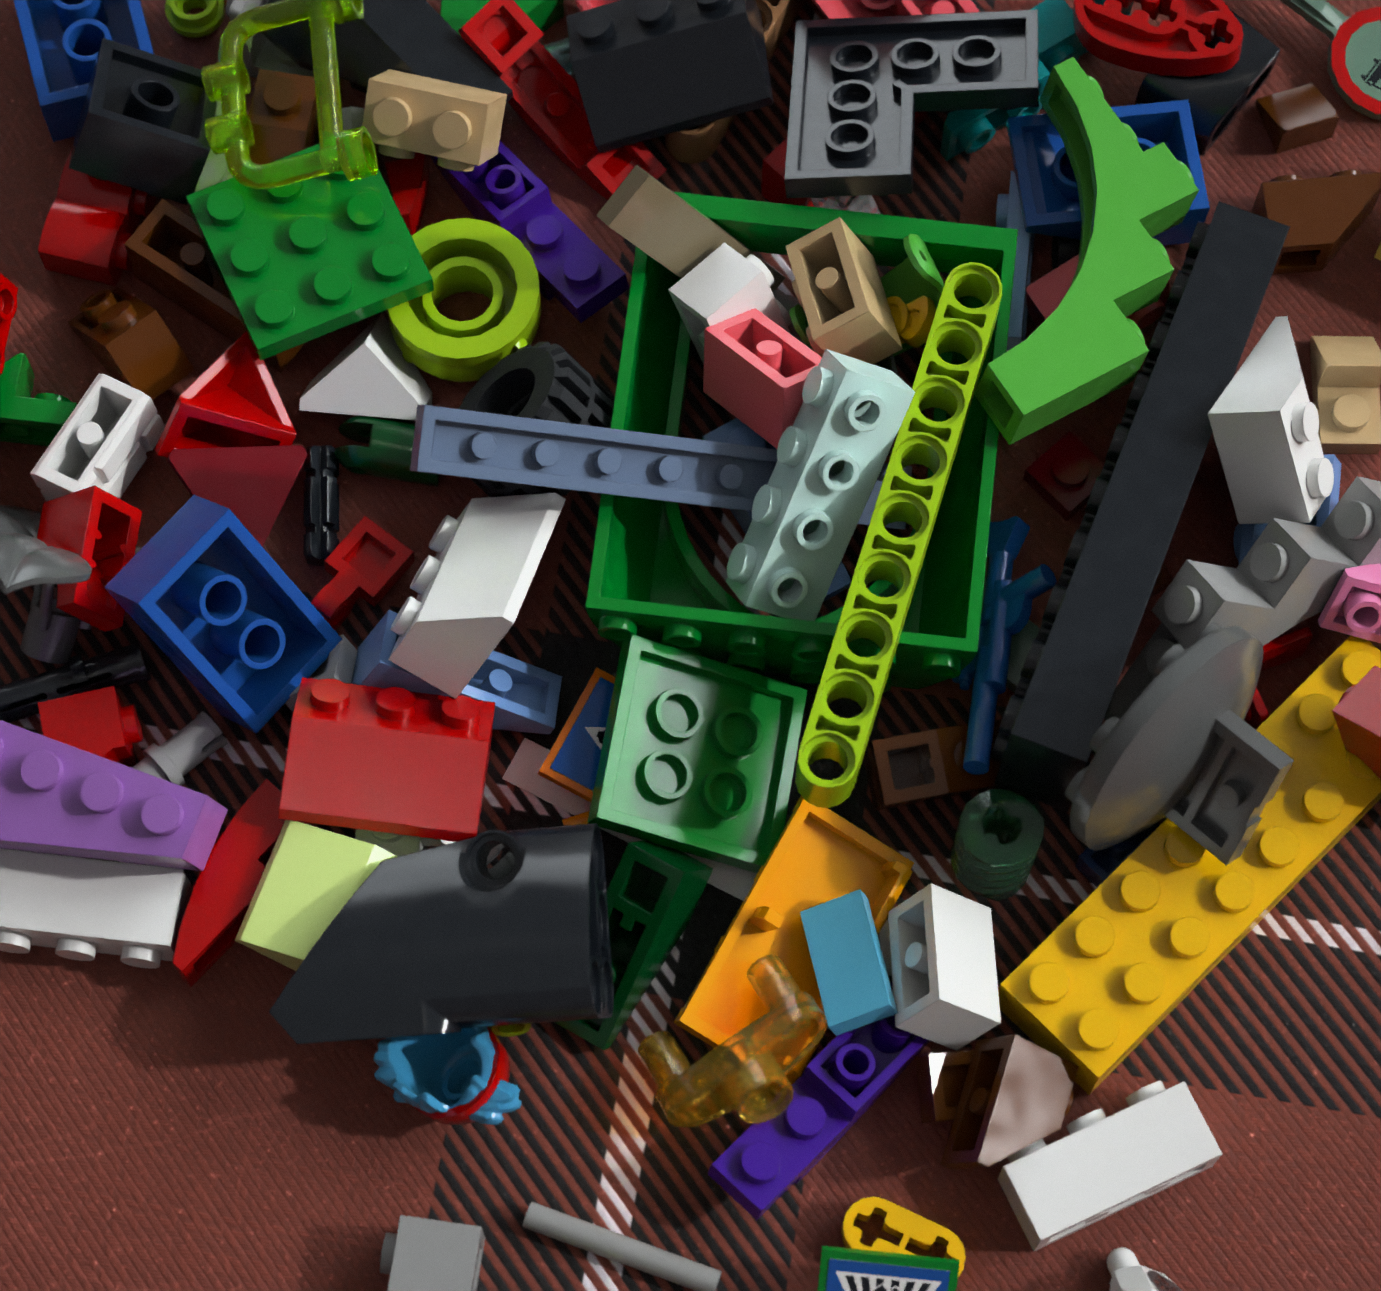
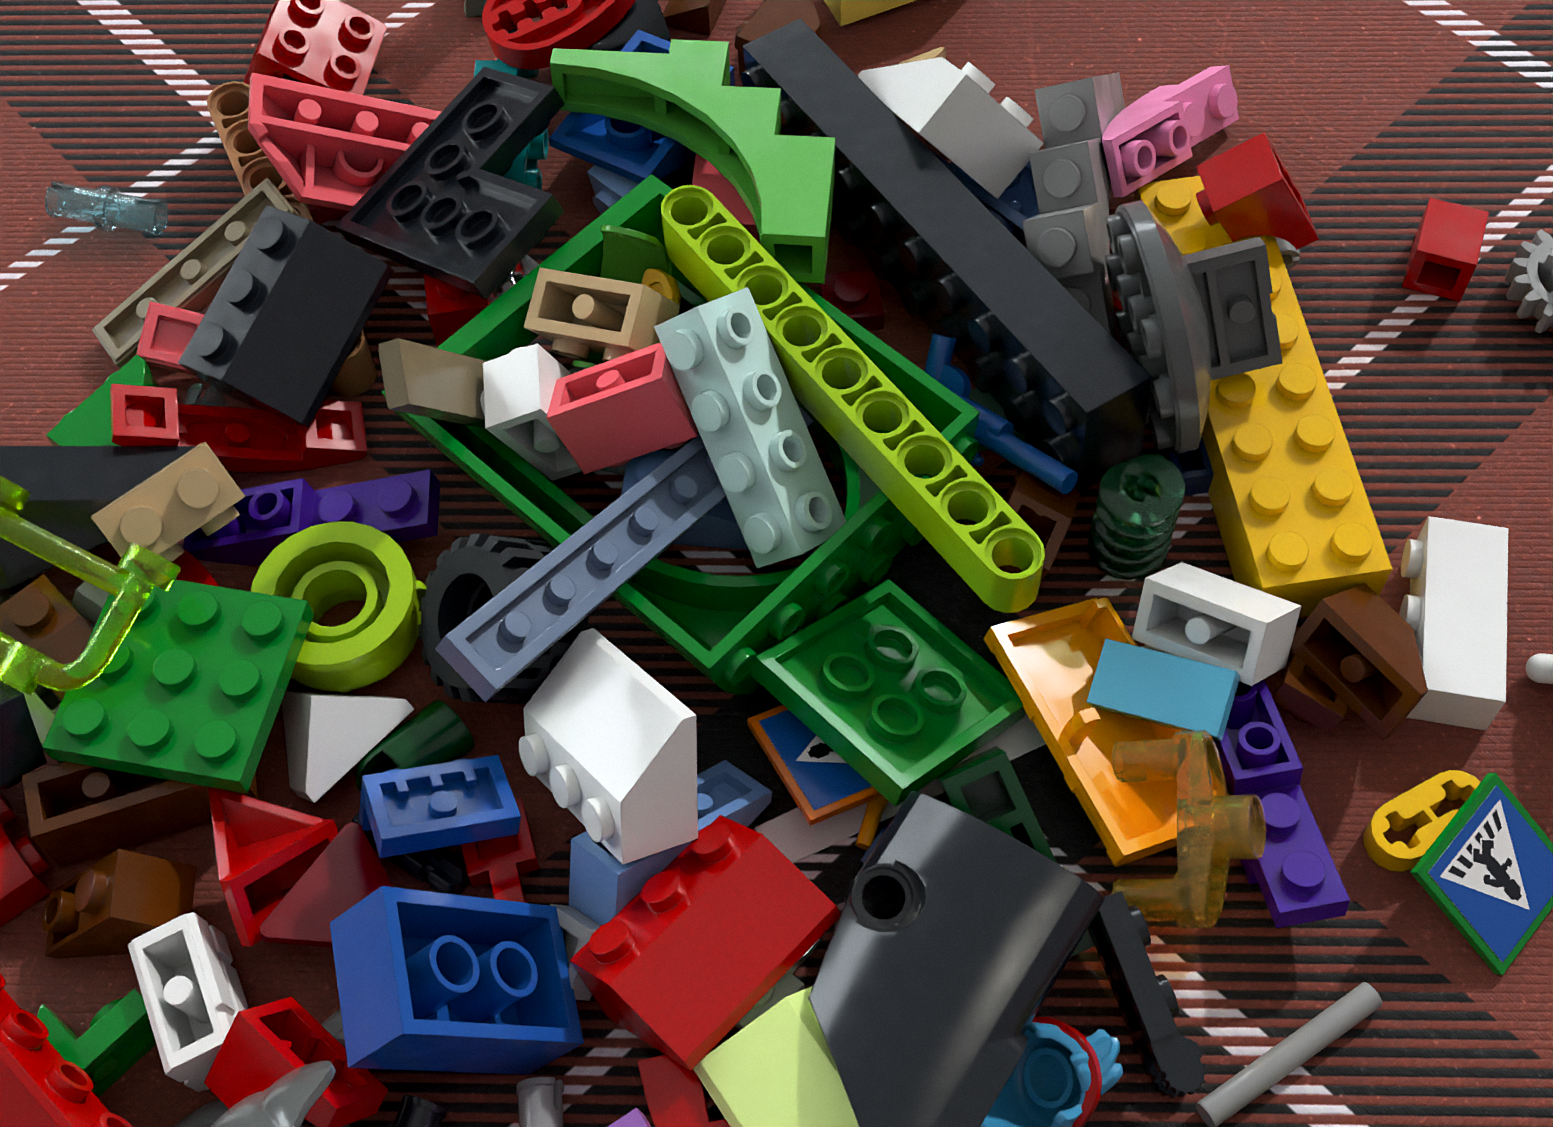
camera: 50 degrees left, 10 degrees down
(353, 498) = (438, 805): none -> blue bracket
(577, 1108) = (1145, 999): none -> black hinge

